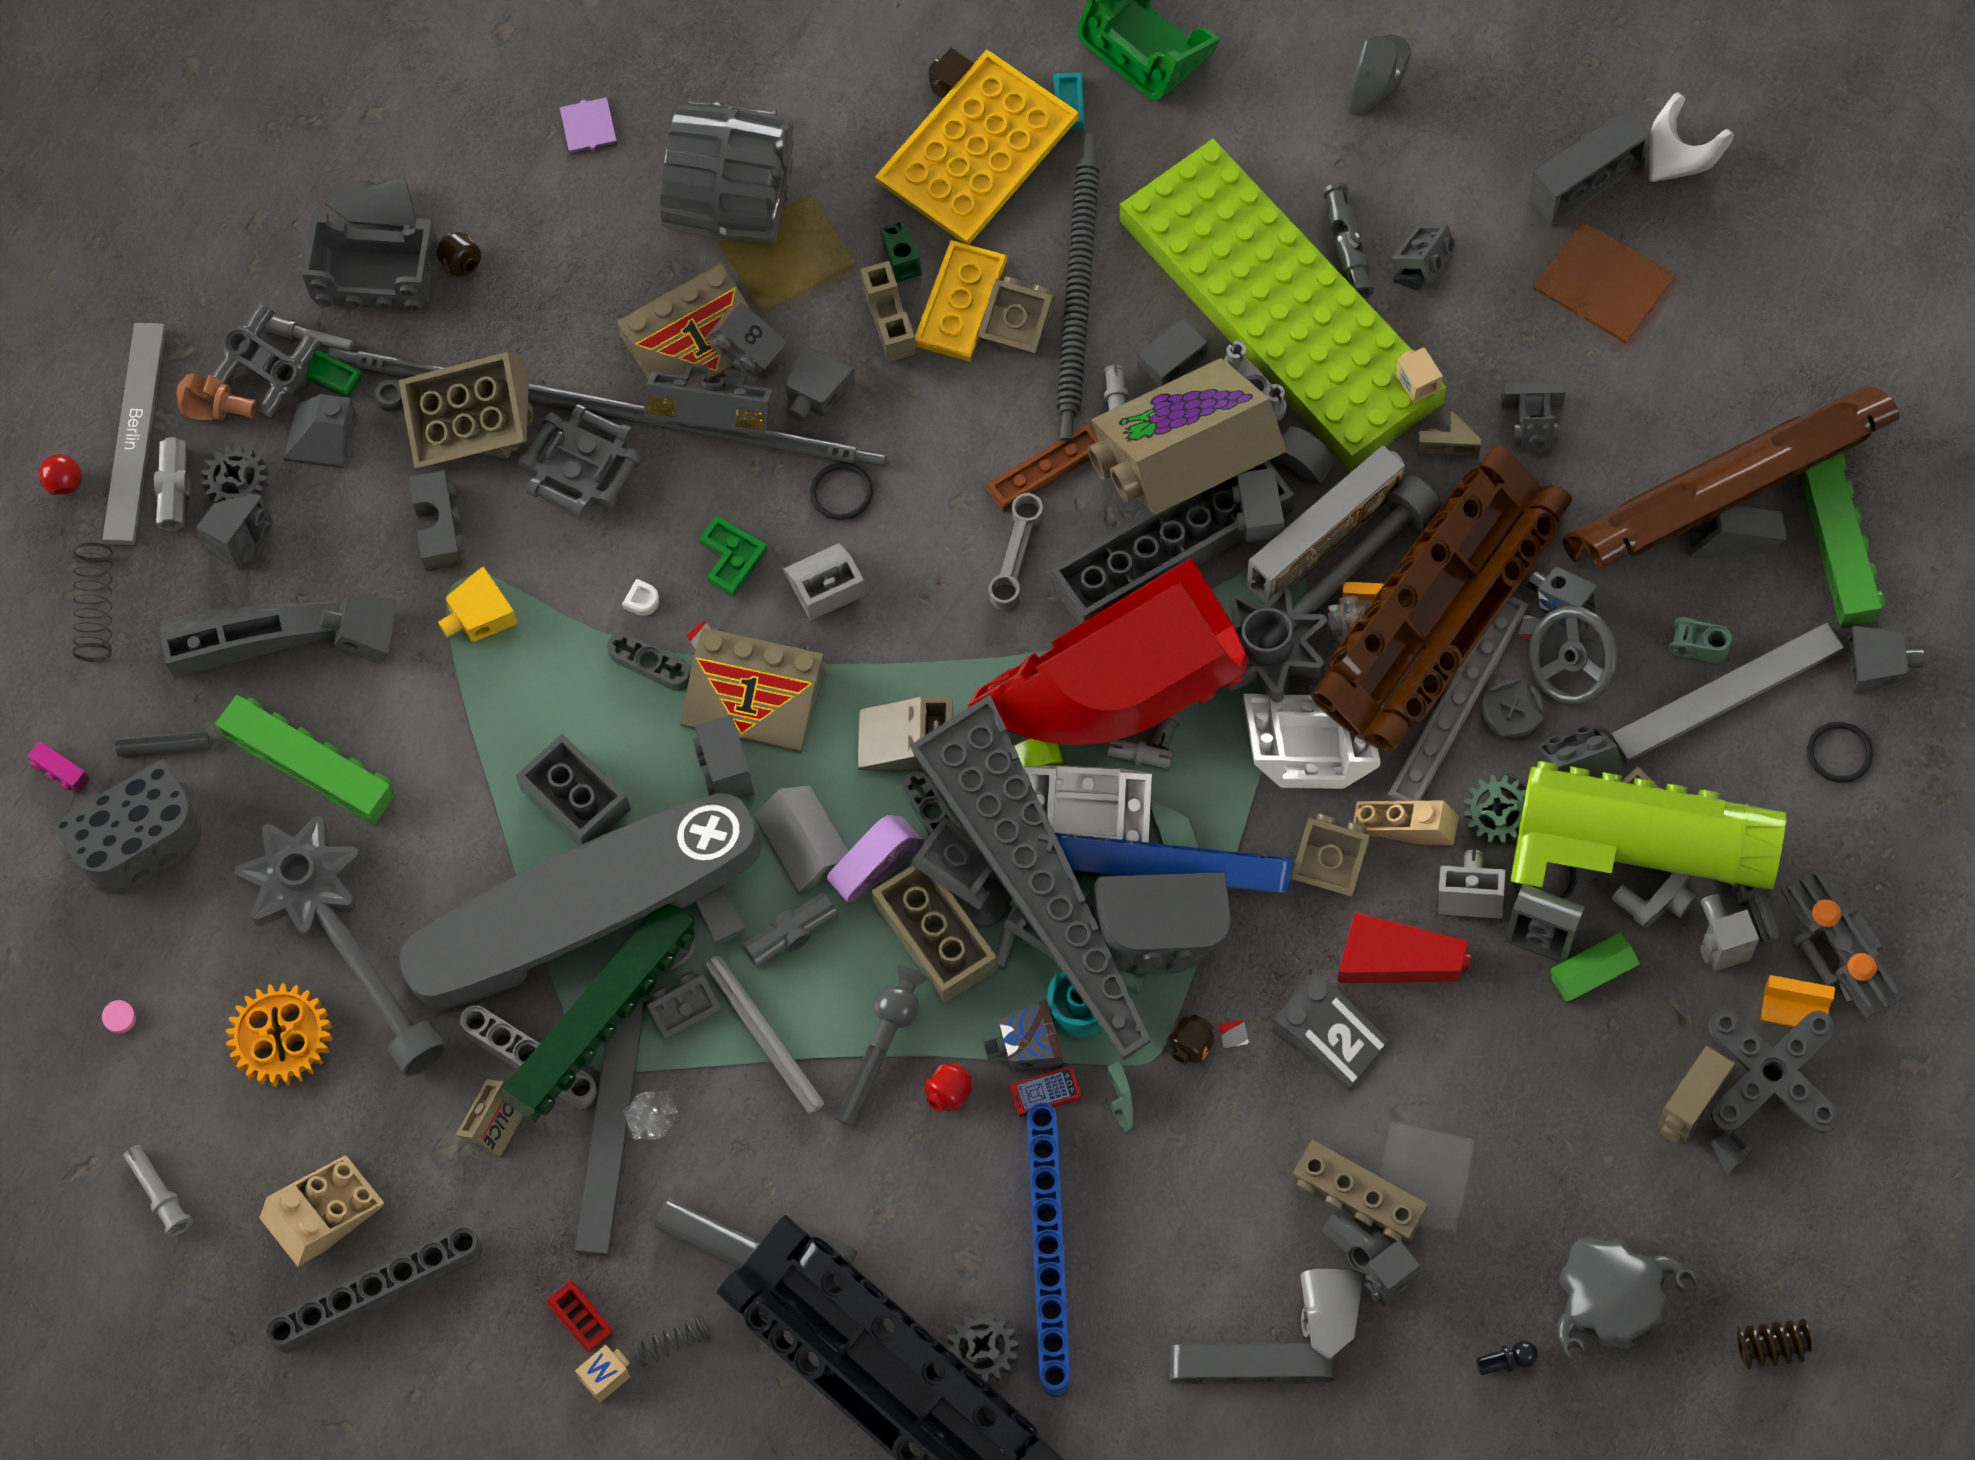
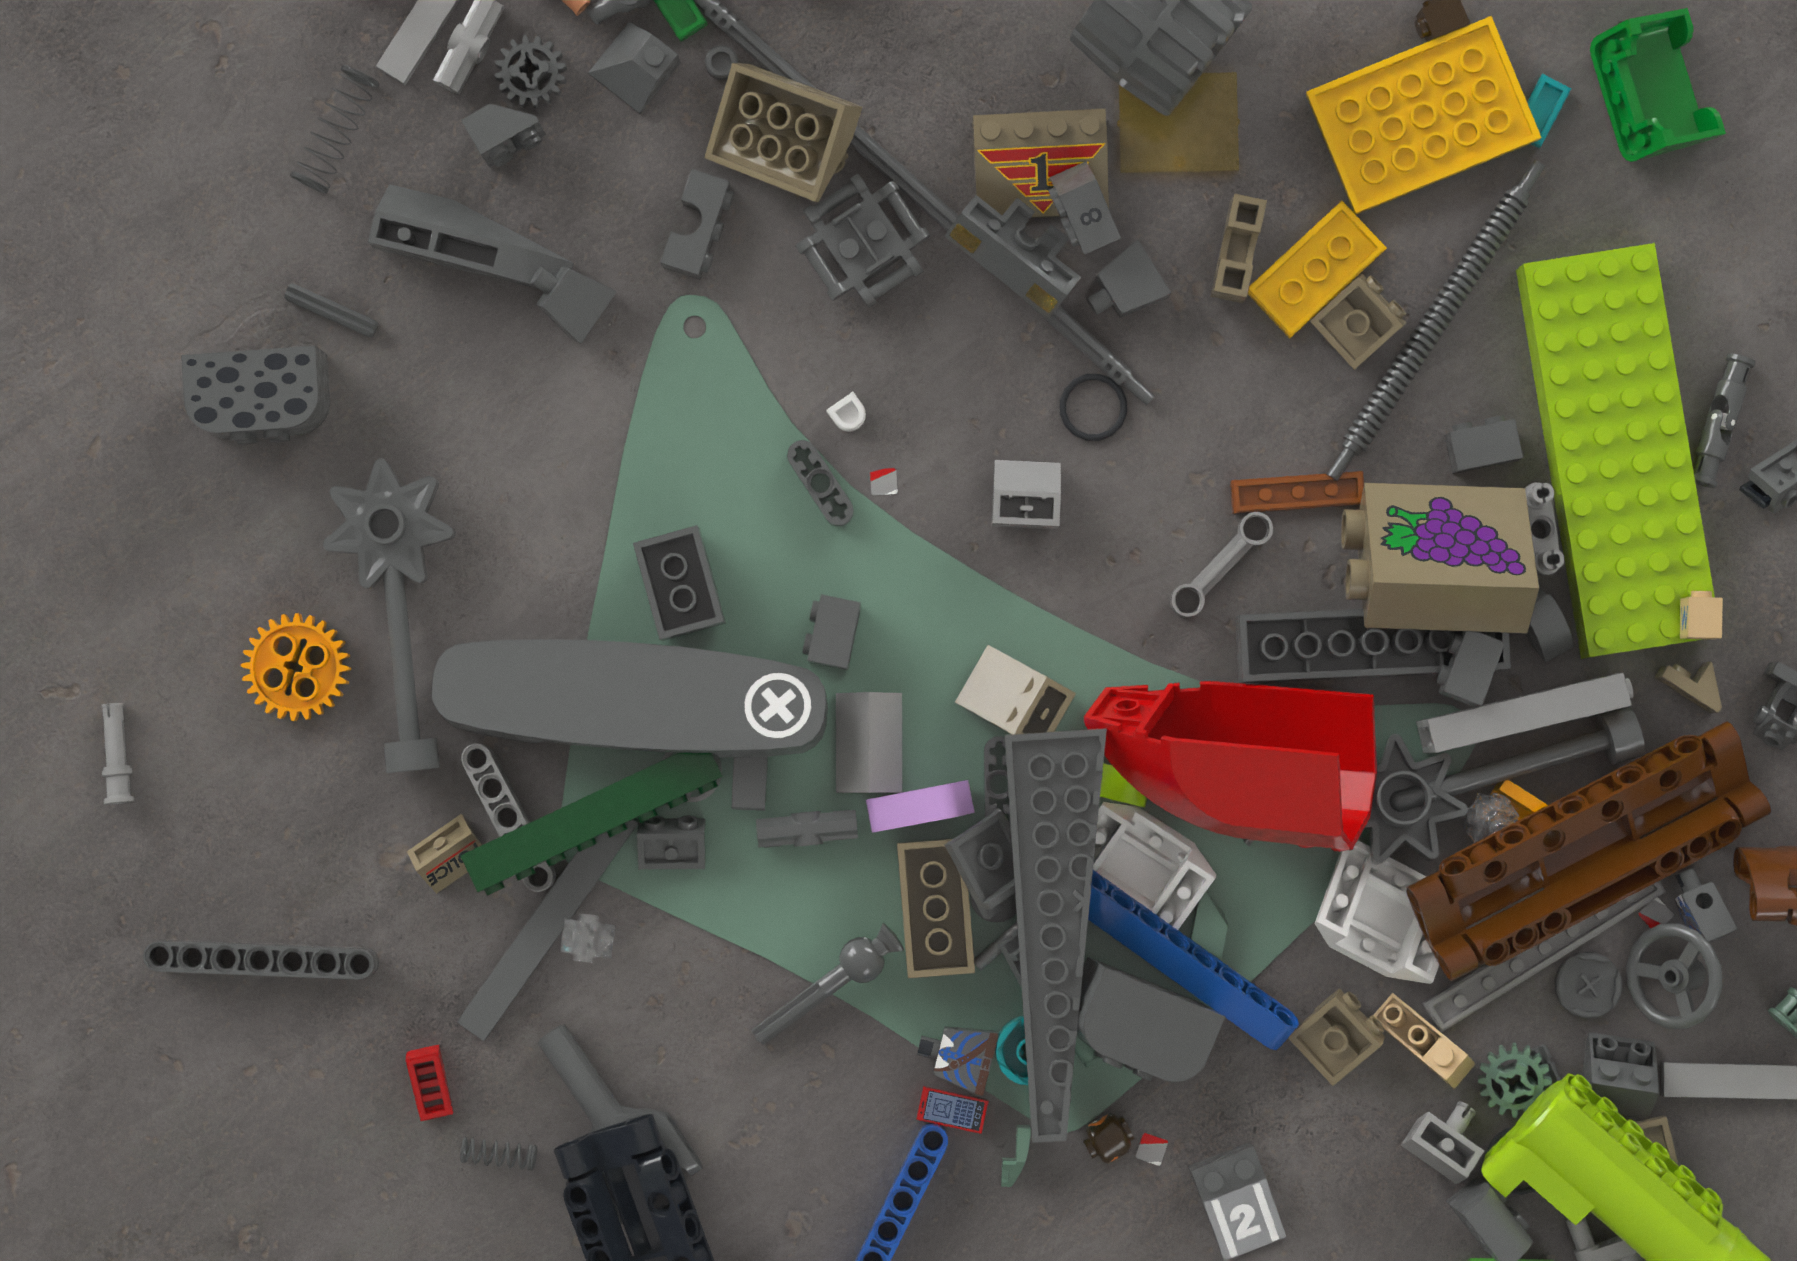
camera: 25 degrees right, 20 degrees up
(57, 767) = (223, 281): dark pink piece -> none
(118, 1017) = (163, 563): bright pink tile -> none
(305, 759) = (453, 405): bright green brick -> none
(319, 1209) = (252, 855): tan slope -> none
(477, 608) = (688, 340): yellow torso -> none
(604, 1372) = (423, 1151): tan brick -> none
(738, 551) = (962, 421): green plate -> none
(759, 683) = (898, 570): dark tan slope -> none
(764, 1035) = (730, 913): light grey axle -> none
(901, 252) = (1287, 186): dark green leg -> none
(948, 1088) = (866, 1060): red head -> none
(1116, 393) = (1407, 455): light grey pin -> none
(1140, 753) = (1229, 845): light grey pin -> none
(1400, 953) = (1337, 1160): red slope -> none

